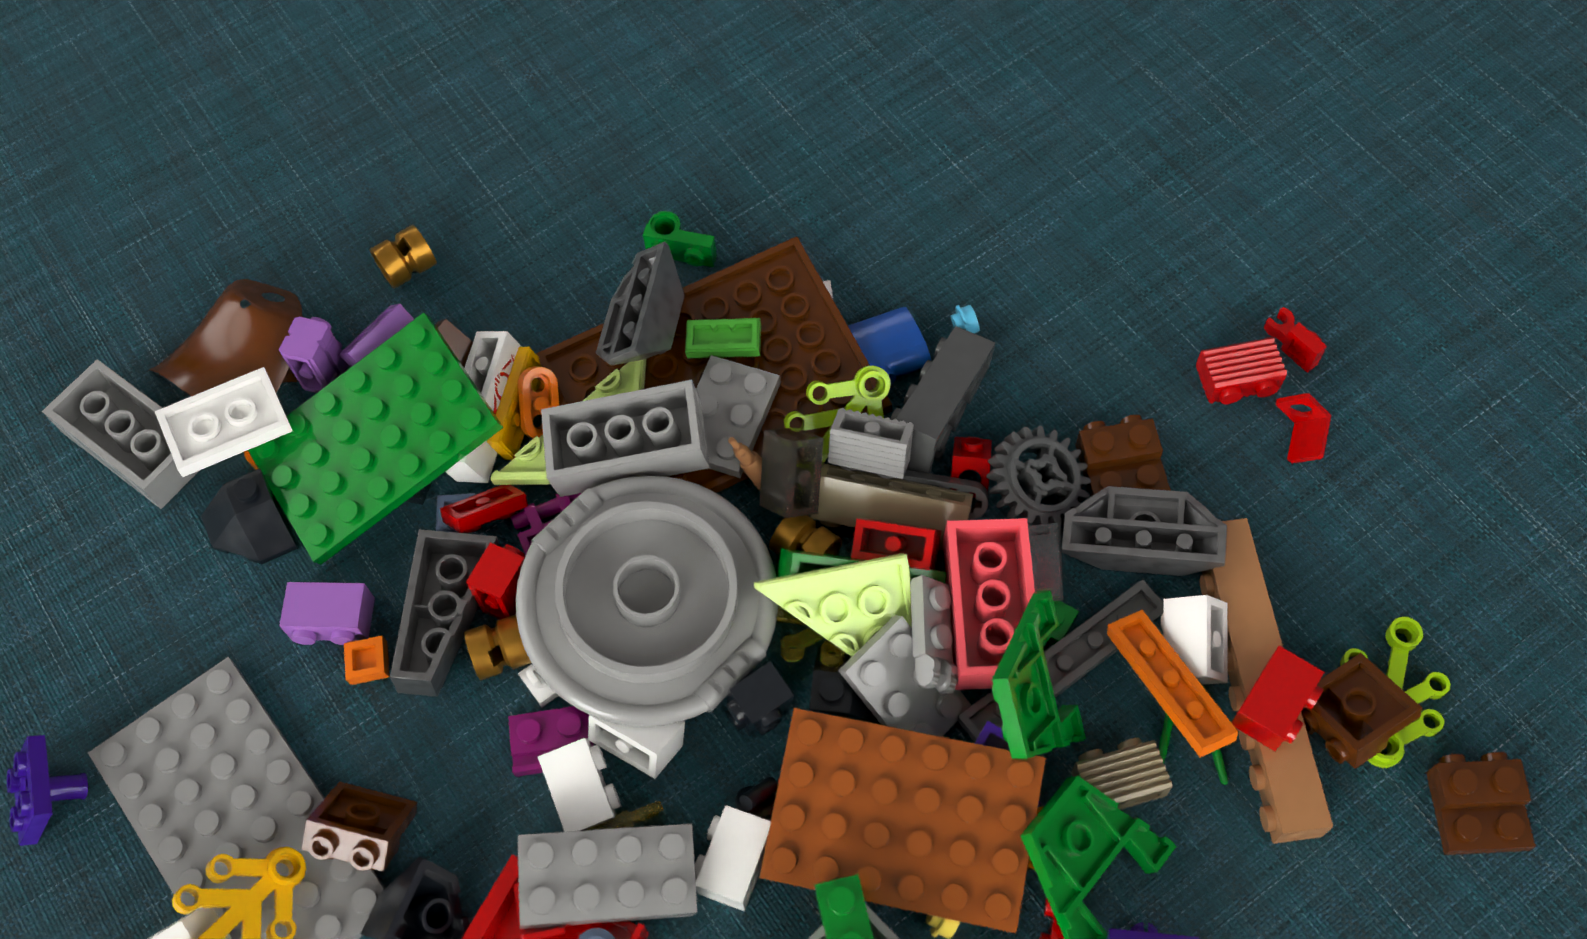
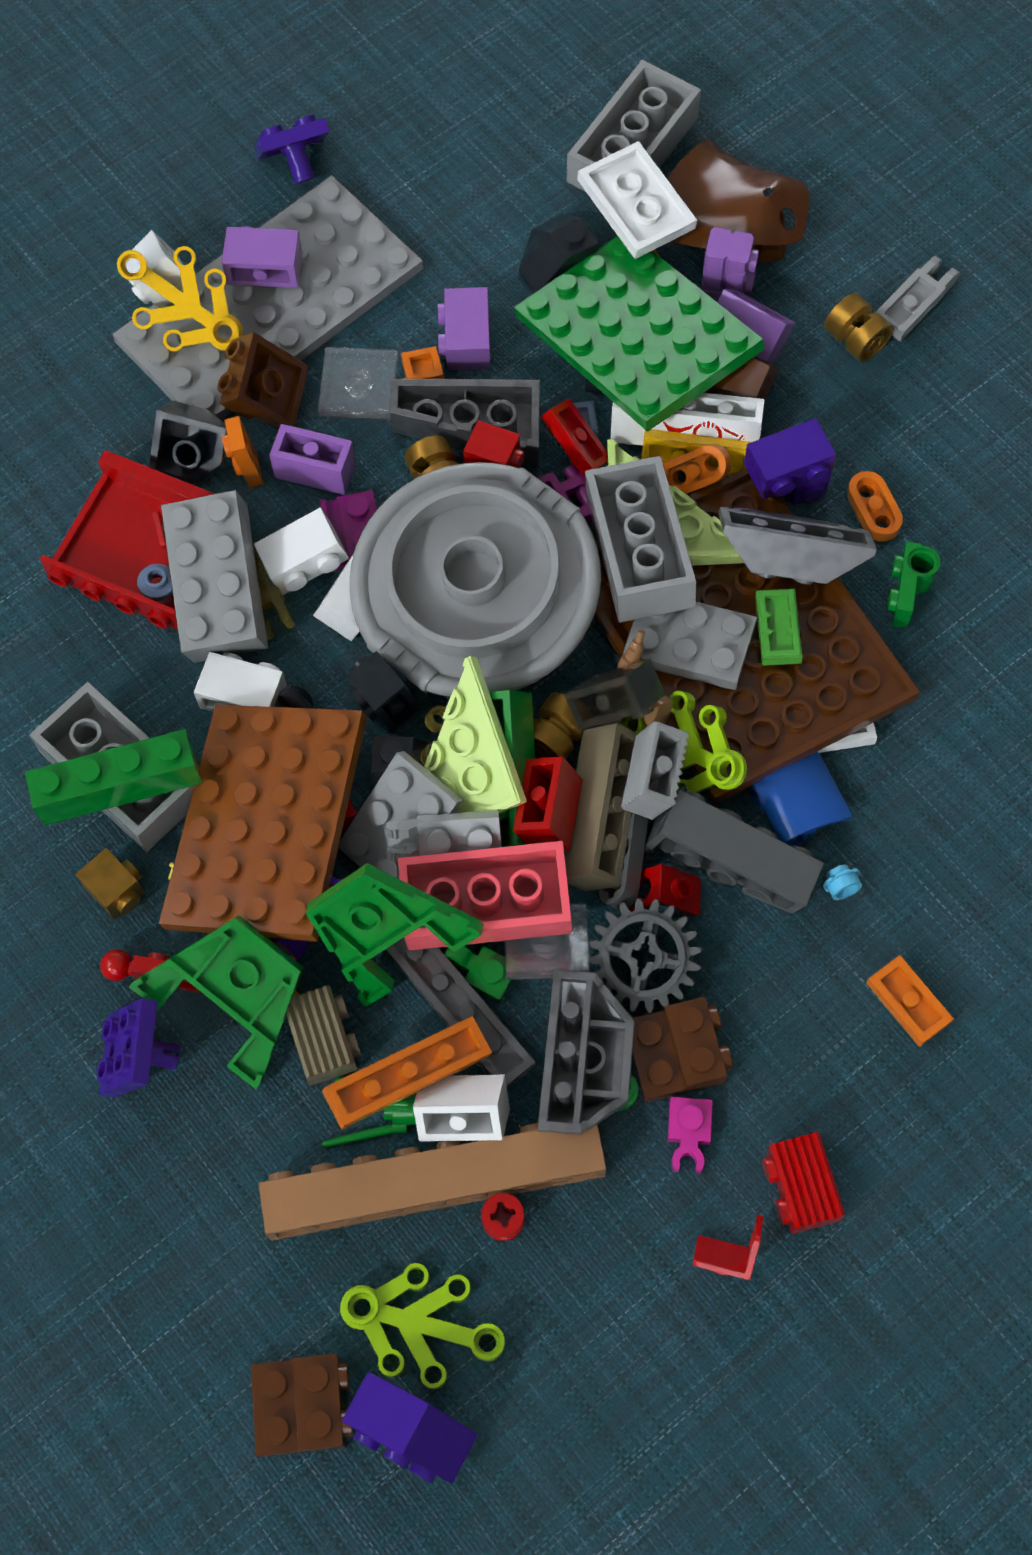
camera: 85 degrees right, 5 degrees up
(194, 818) = (262, 257): none -> medium lavender brick
(371, 729) = (357, 383): none -> clear plate
(375, 209) = (916, 297): none -> light grey hinge
(448, 847) = (241, 450): none -> orange plate
(466, 772) = (313, 459): none -> medium lavender brick
(551, 312) = (792, 463): none -> dark purple brick
(594, 264) = (875, 509): none -> orange plate
(1074, 280) = (909, 1001): none -> orange plate
(1191, 460) = (689, 1125): none -> dark pink plate
(1278, 698) = (389, 1178): red brick -> none
(1291, 626) = (504, 1225): none -> red wheel
(1298, 342) = (847, 1259): red plate -> none
(1359, 711) = (390, 1270): reddish brown plate -> none
(1500, 700) = (409, 1430): none -> dark purple brick

